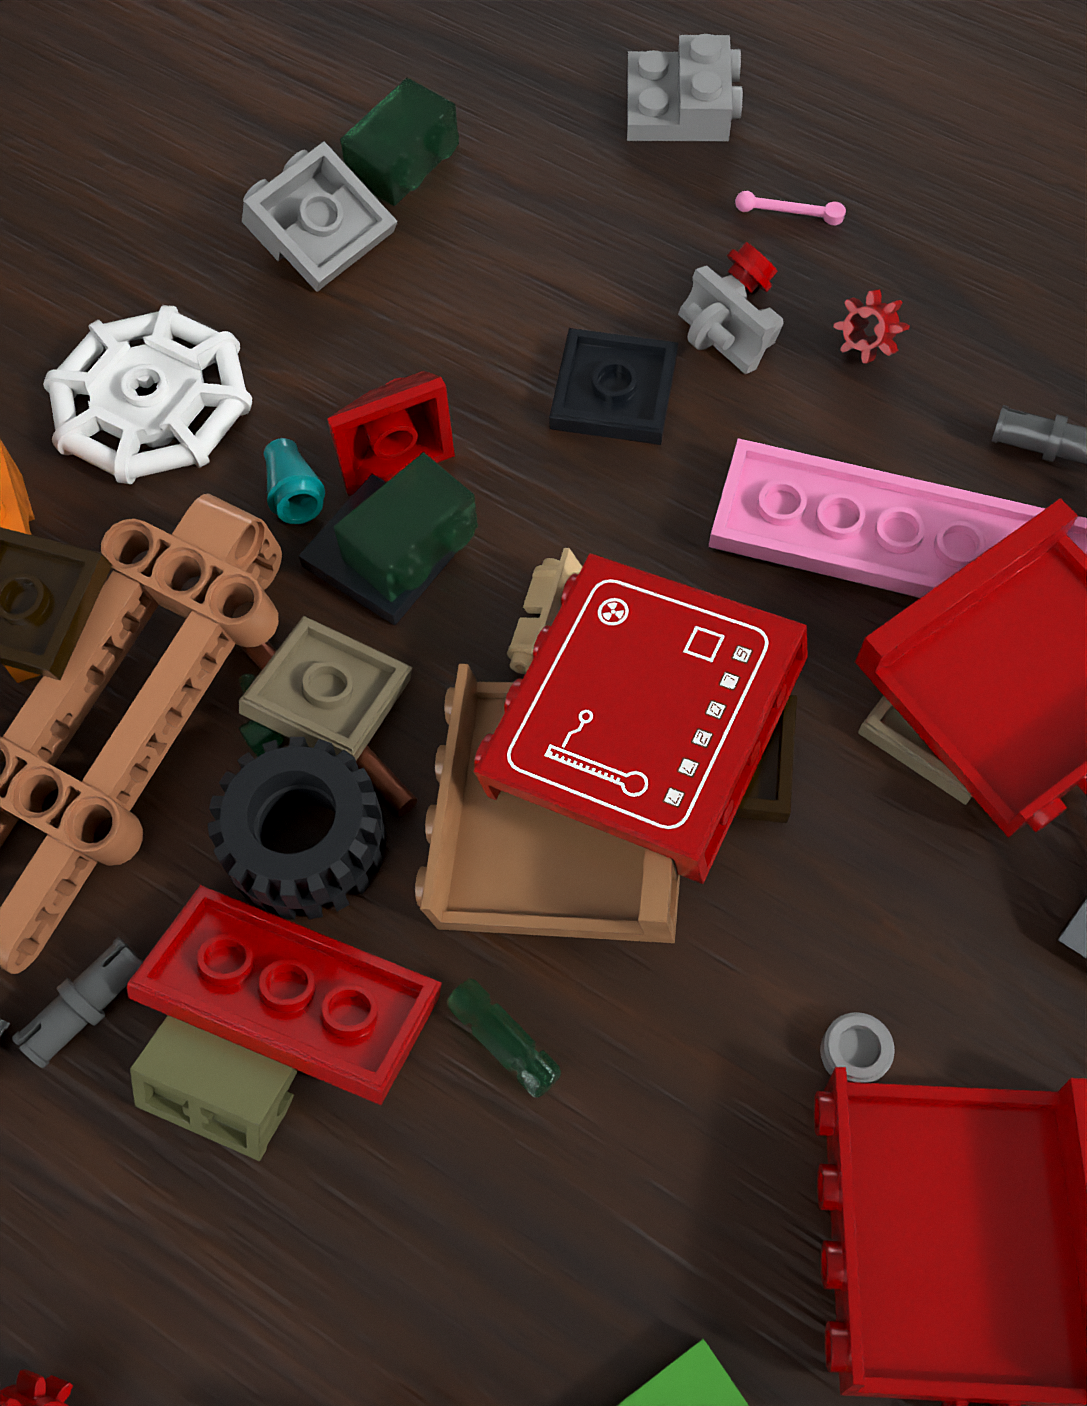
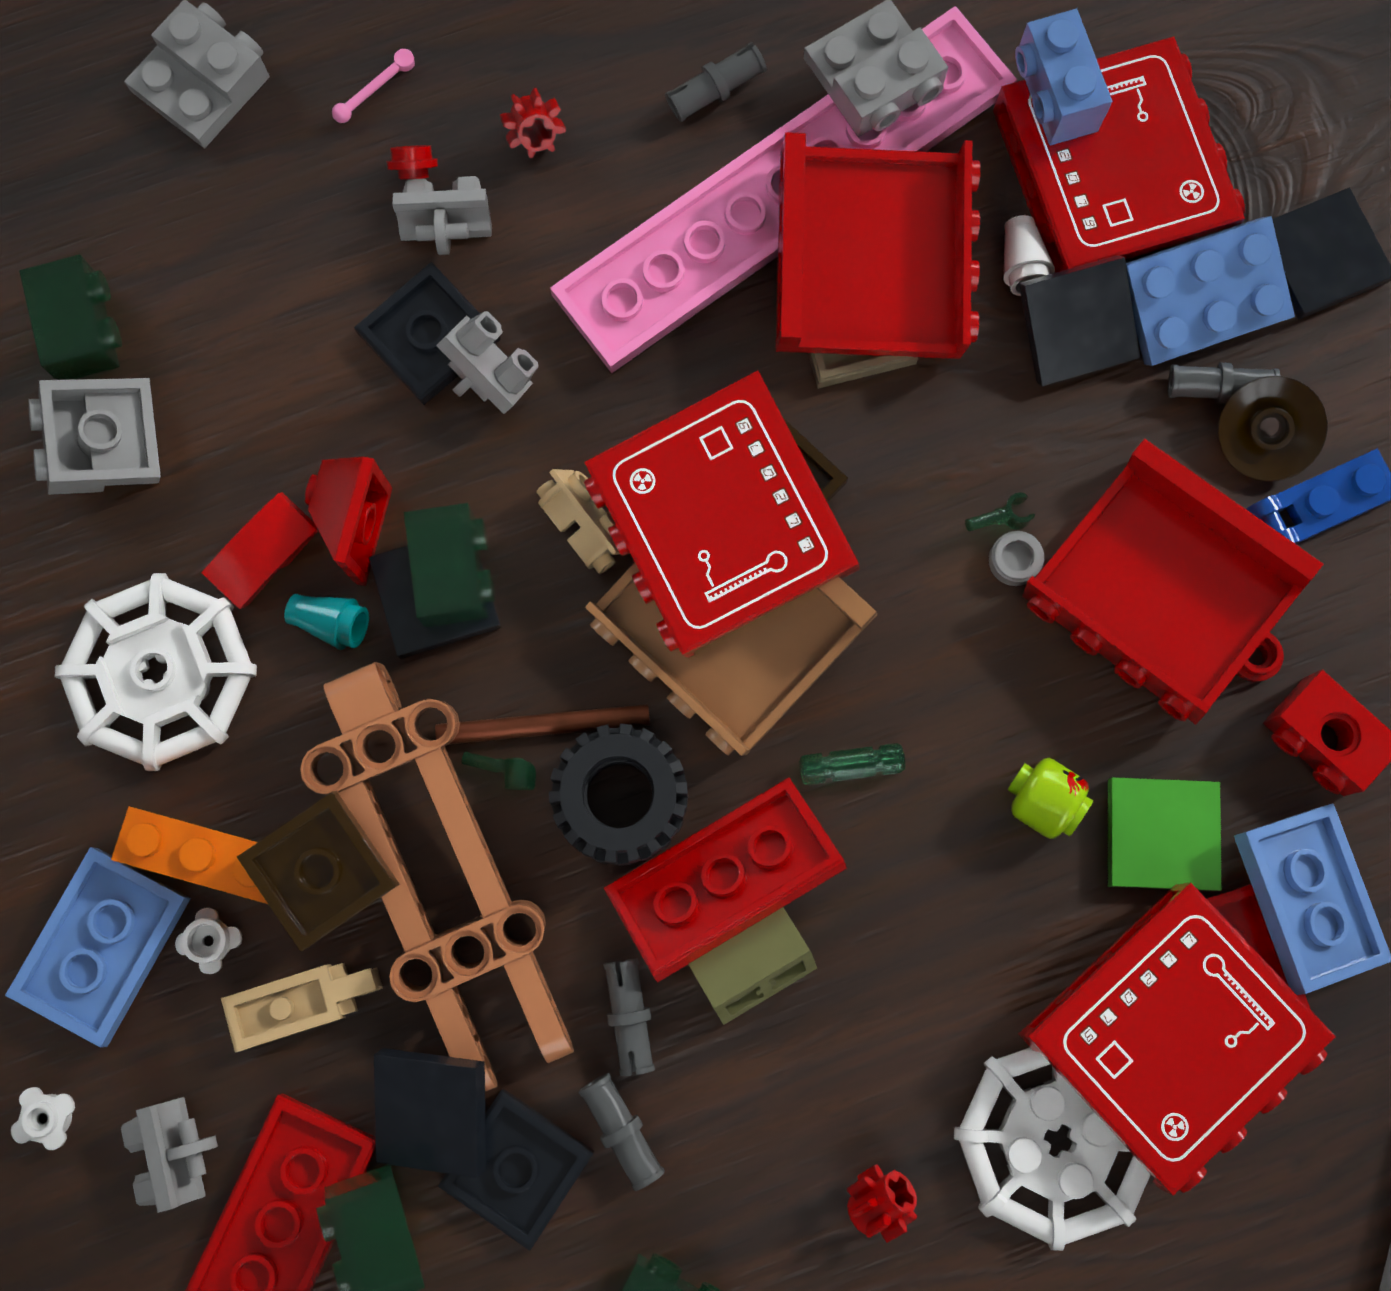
camera: 55 degrees left, 15 degrees up
(307, 388) = (260, 550): none -> red slope
(325, 688) = (525, 708): dark tan tile -> none
(620, 434) = (484, 365): none -> light grey hips
(622, 1278) = (1049, 798): none -> lime head
(889, 999) = (1001, 515): none -> clear green hand

